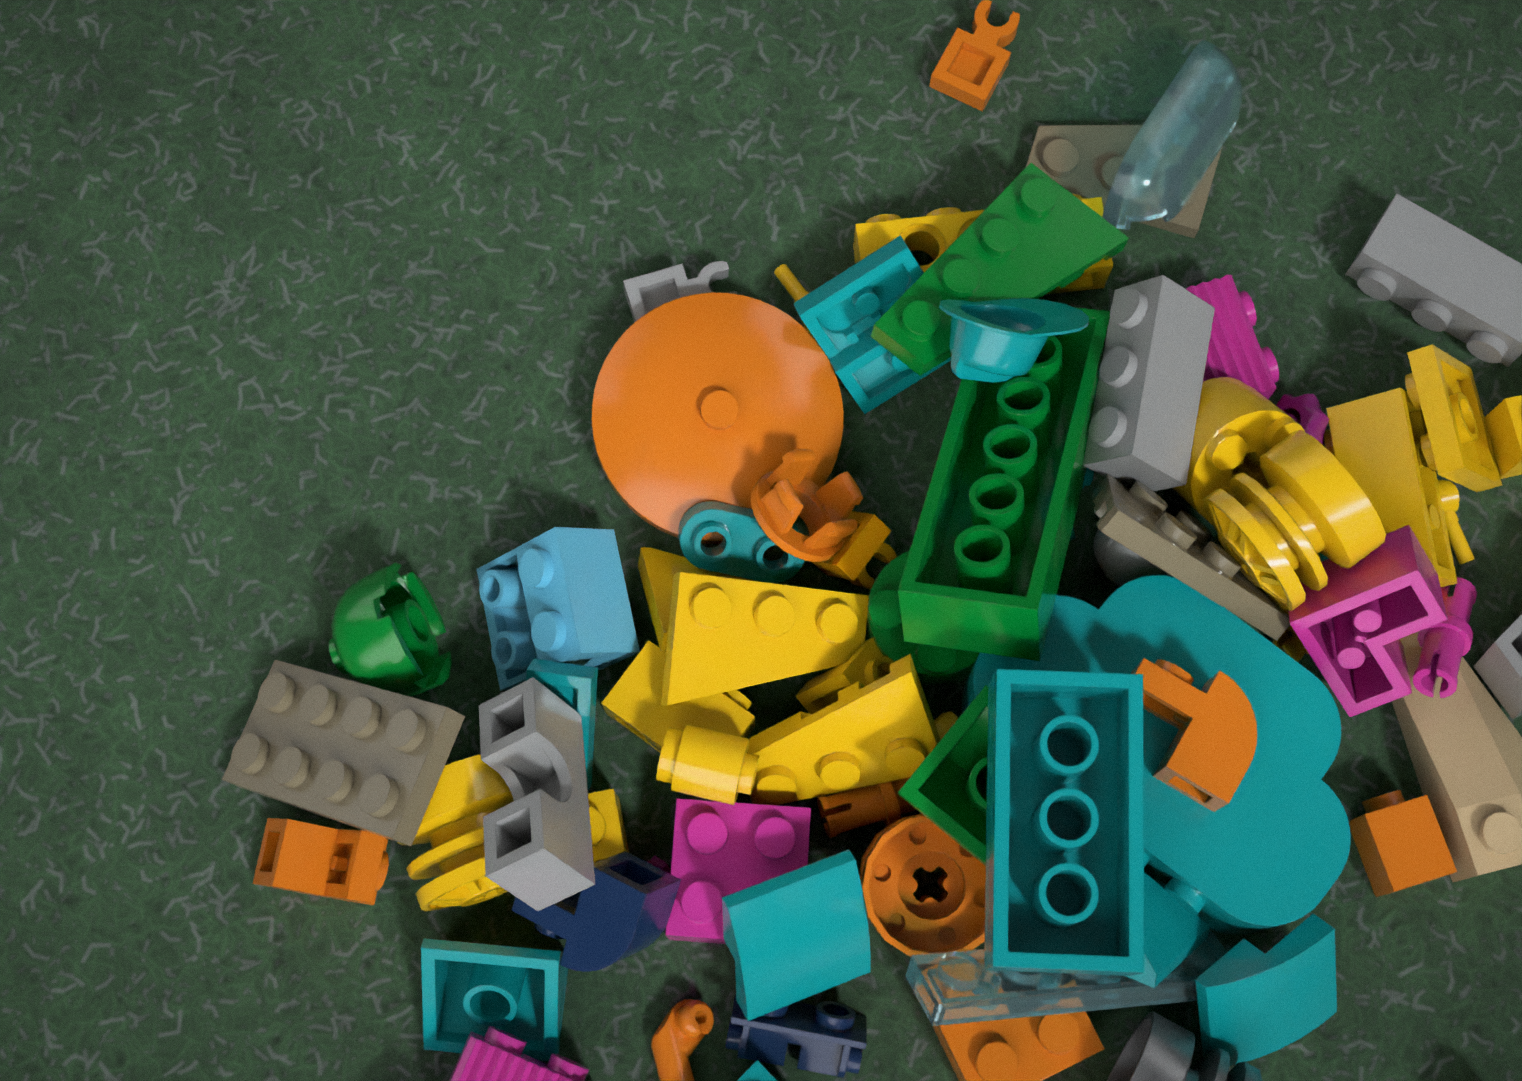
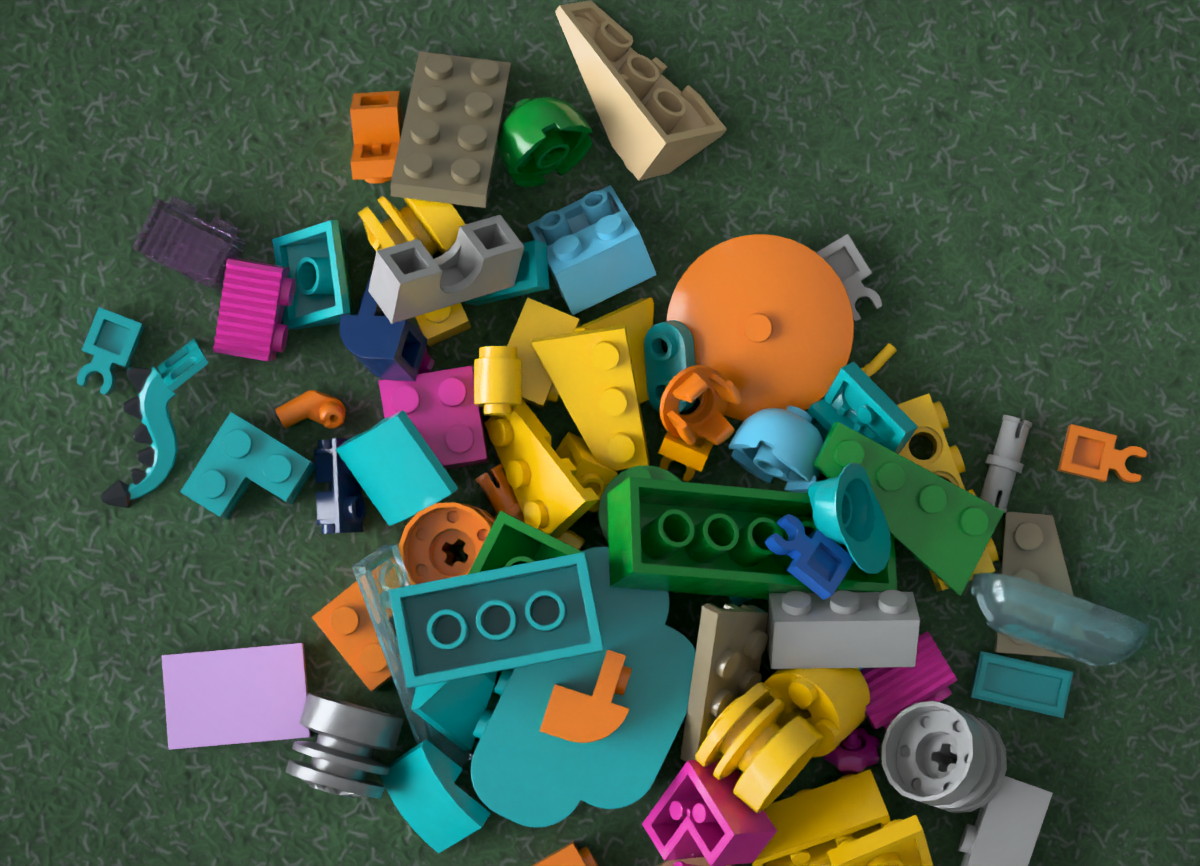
camera: 80 degrees right, 10 degrees up
(393, 503) = (641, 110): none -> tan wedge
(882, 420) = (779, 446): none -> medium azure cylinder
(956, 163) = (1005, 461): none -> light grey pin
(1054, 383) = (816, 558): none -> blue plate
(1242, 213) = (1021, 684): none -> teal tile
(1326, 345) = (921, 752): none -> light grey wheel

